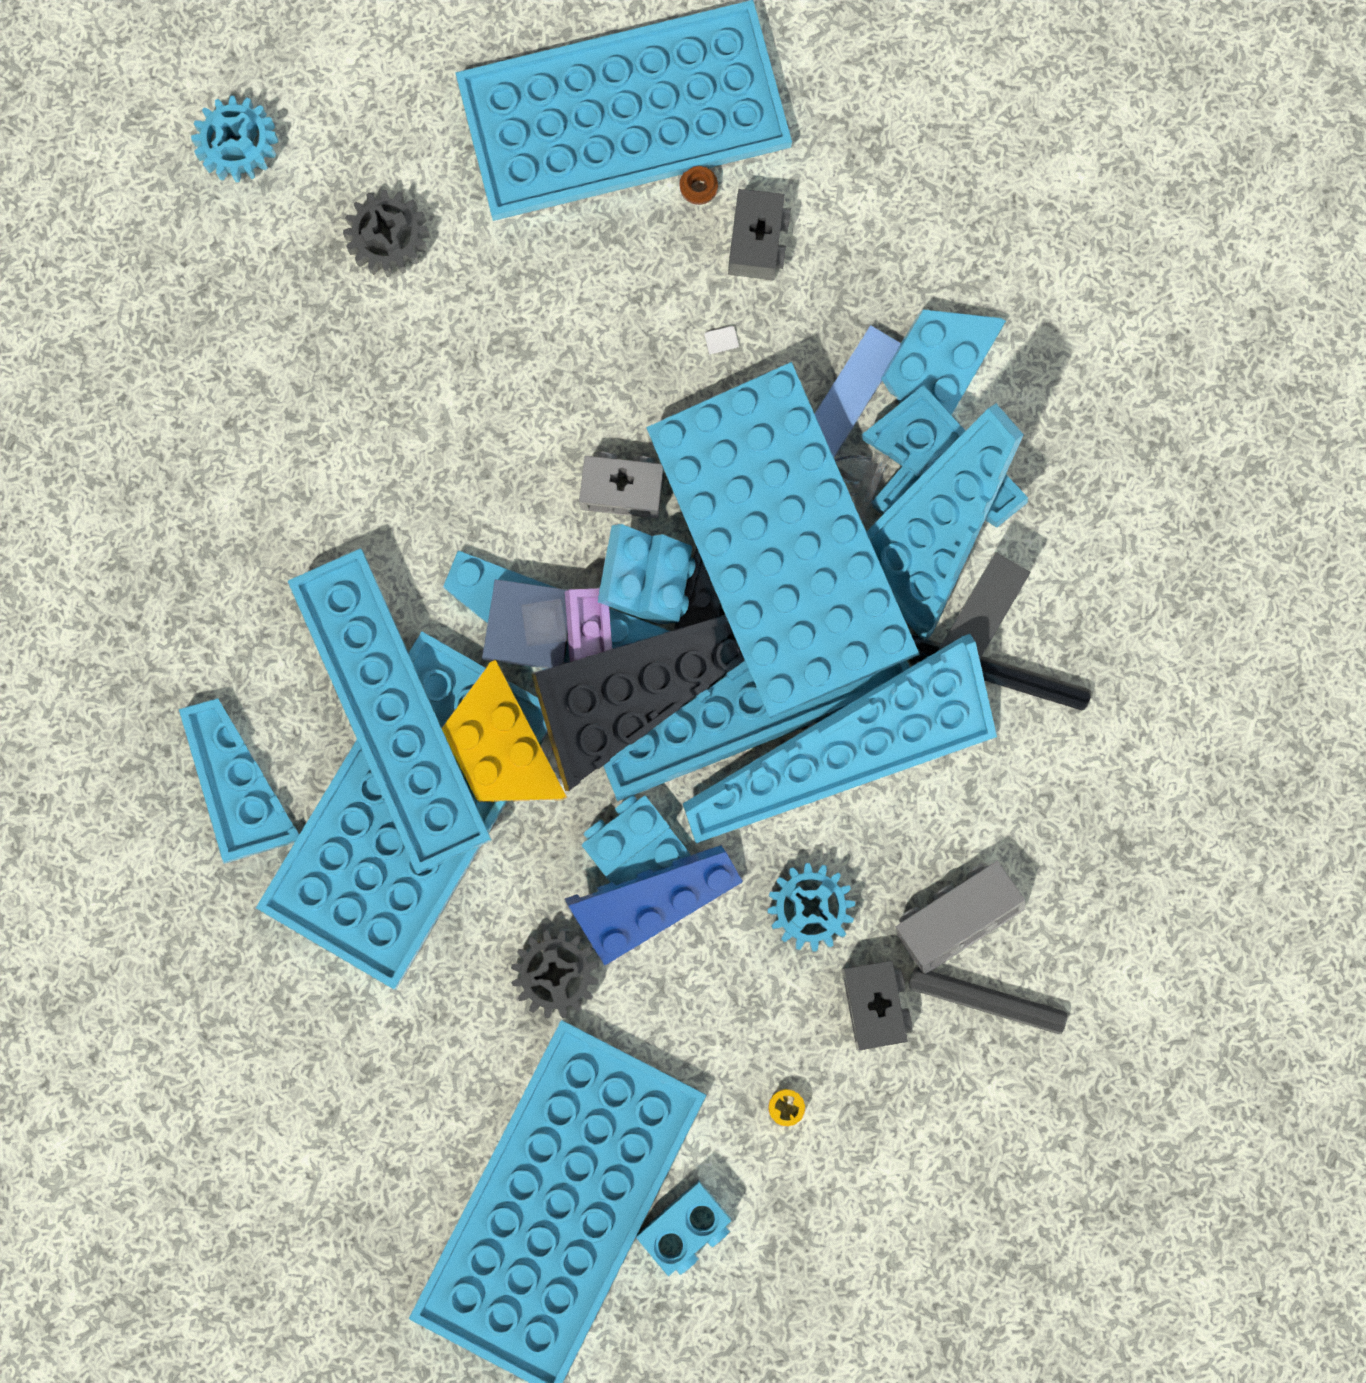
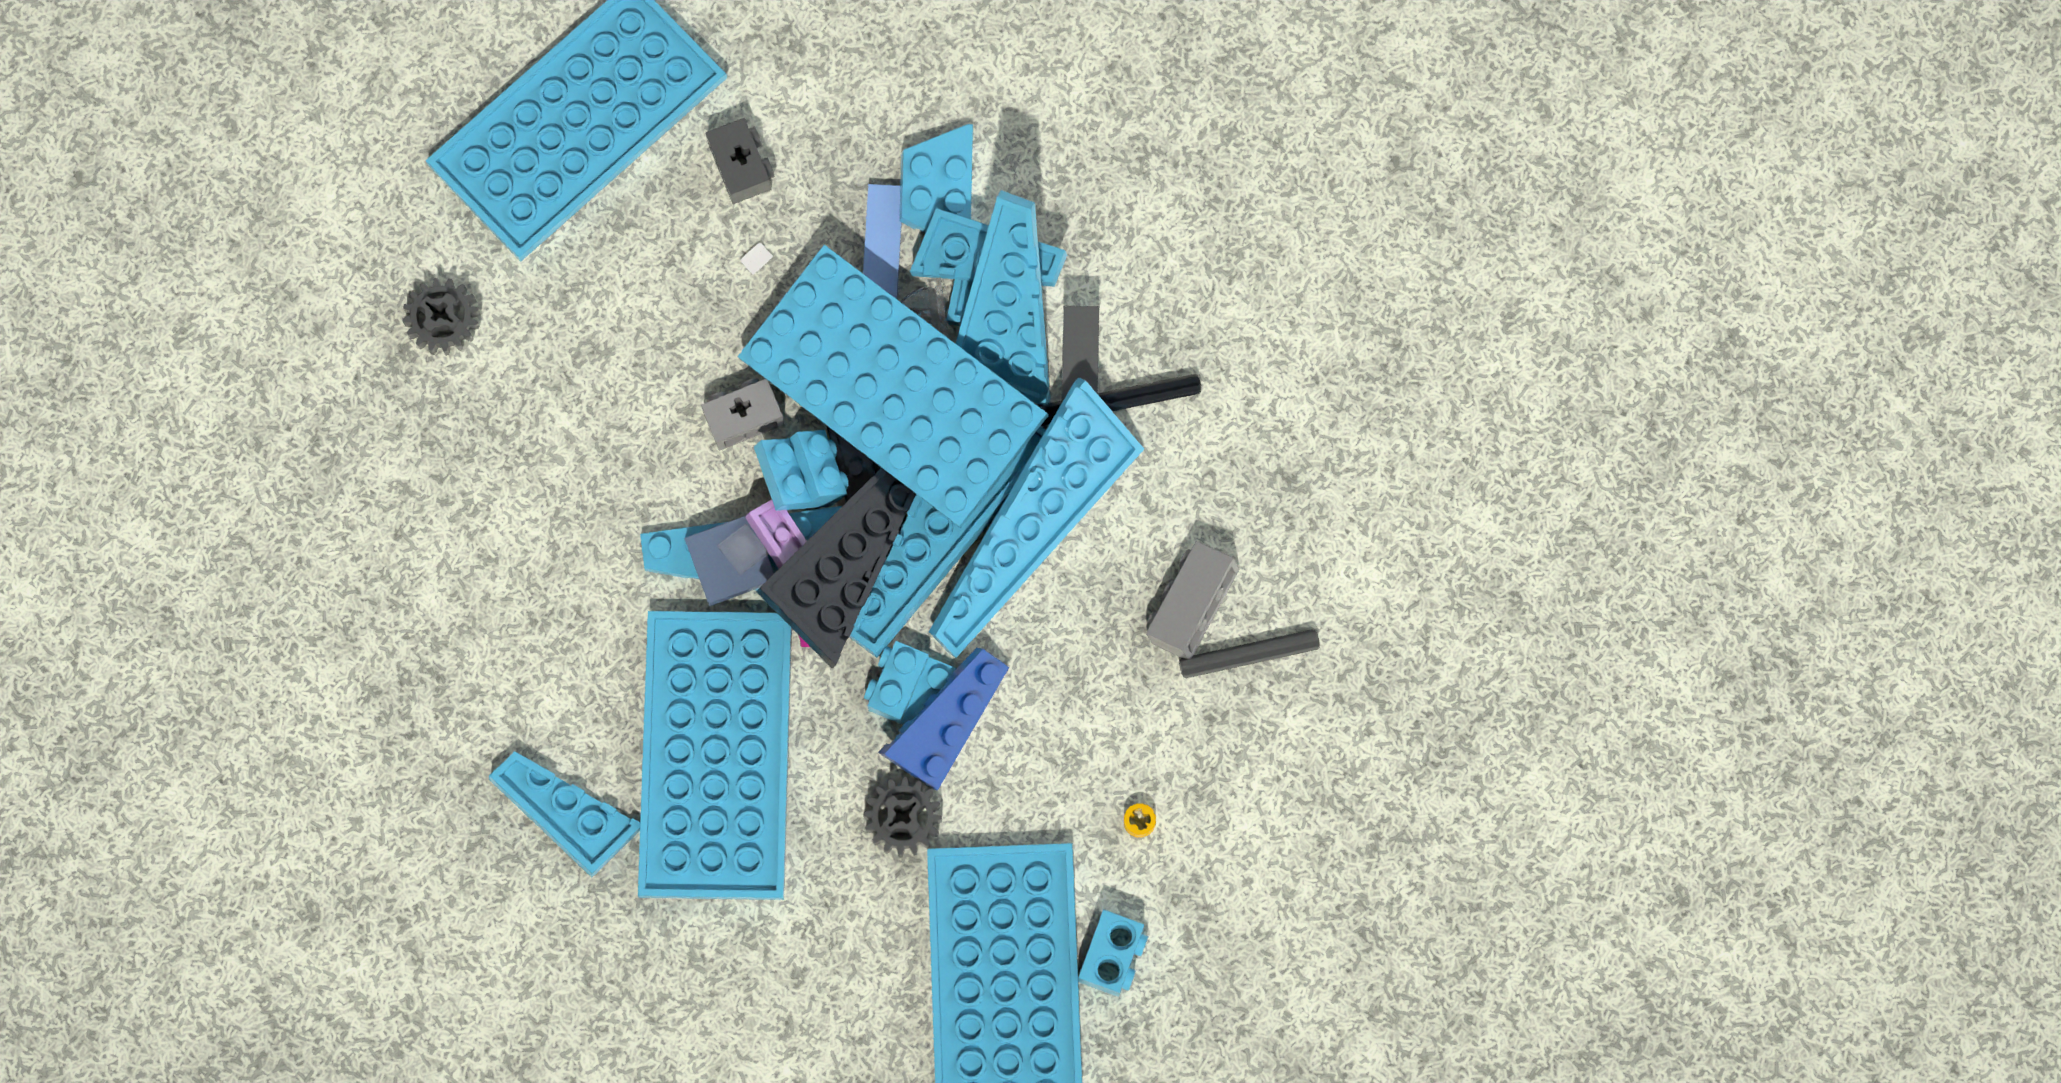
camera: 30 degrees left, 5 degrees down
(241, 123) = (272, 321): medium azure gear -> none
(389, 711) = (658, 684): medium azure plate -> none
(498, 745) = (759, 664): yellow wing -> none
(695, 174) = (666, 137): dark orange plate -> none
(790, 890) = (1056, 654): medium azure gear -> none
(867, 1027) = (1168, 723): dark grey brick -> none

